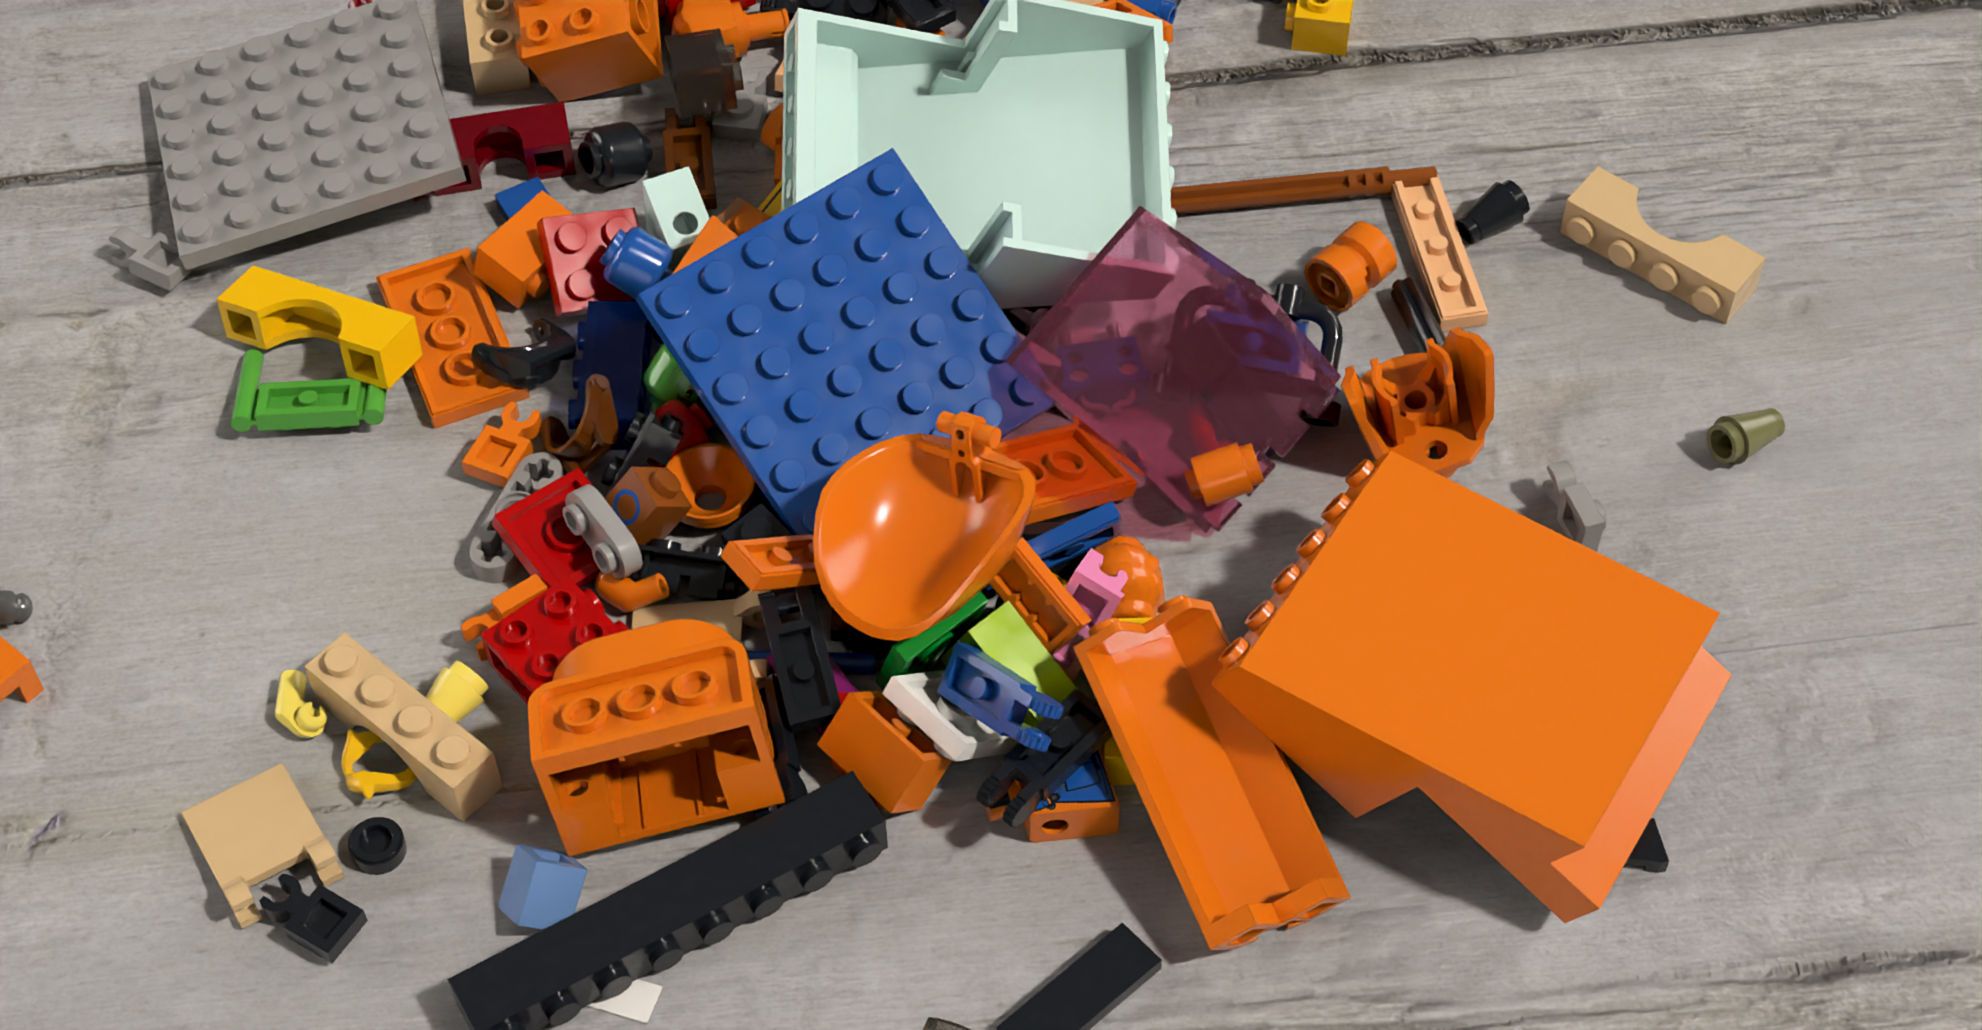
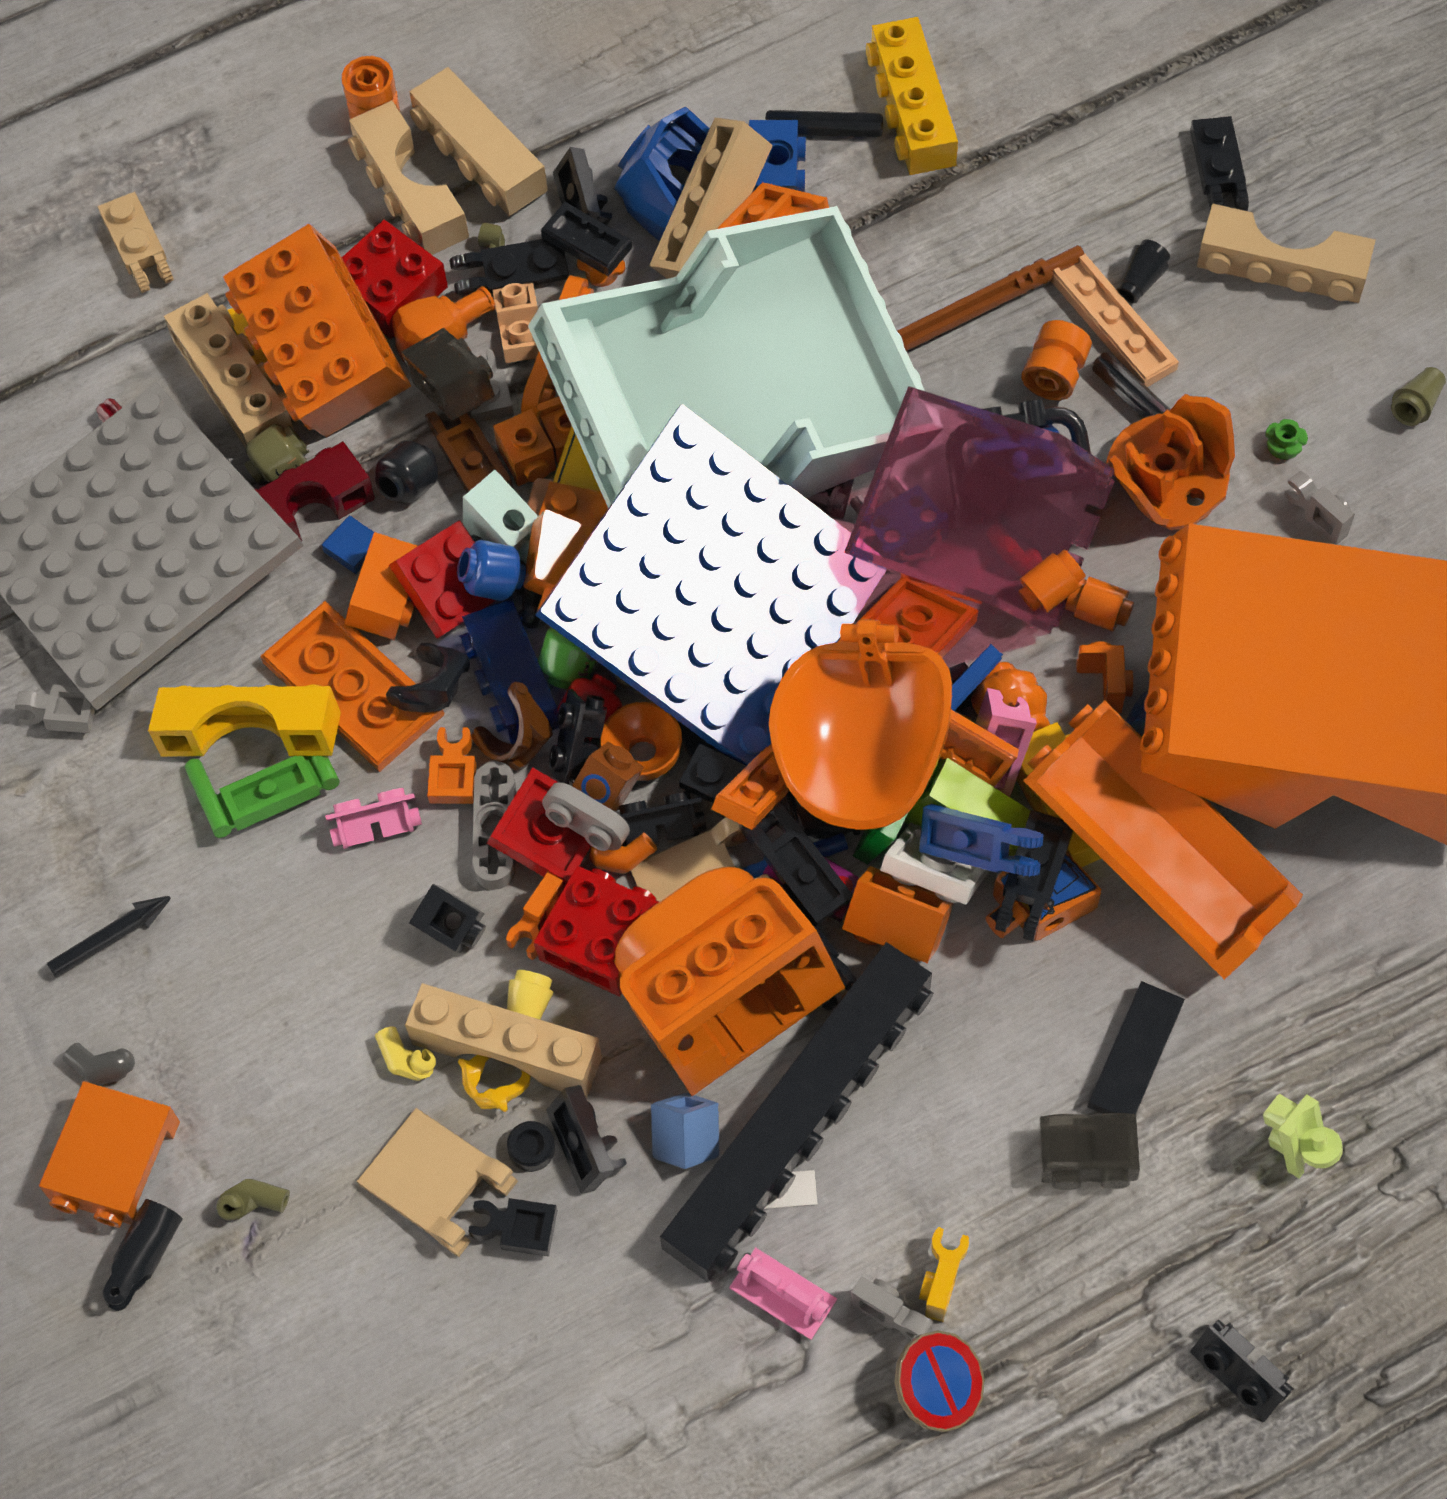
camera: 20 degrees left, 10 degrees up
(64, 784) = (249, 1196): none -> olive arm
(122, 475) = (143, 913): none -> black piece
(378, 460) = (356, 820): none -> bright pink hinge
(404, 576) = (432, 917): none -> black brick
(430, 836) = (580, 1140): none -> black plate
(494, 91) = (274, 452): none -> olive head
(747, 177) = (524, 447): none -> orange brick
(1251, 581) = (1110, 661): none -> orange bracket
(1273, 519) = (1100, 604): none -> orange brick
(1569, 438) = (1282, 447): none -> bright green plate
(1635, 134) = (1219, 161): none -> black hinge

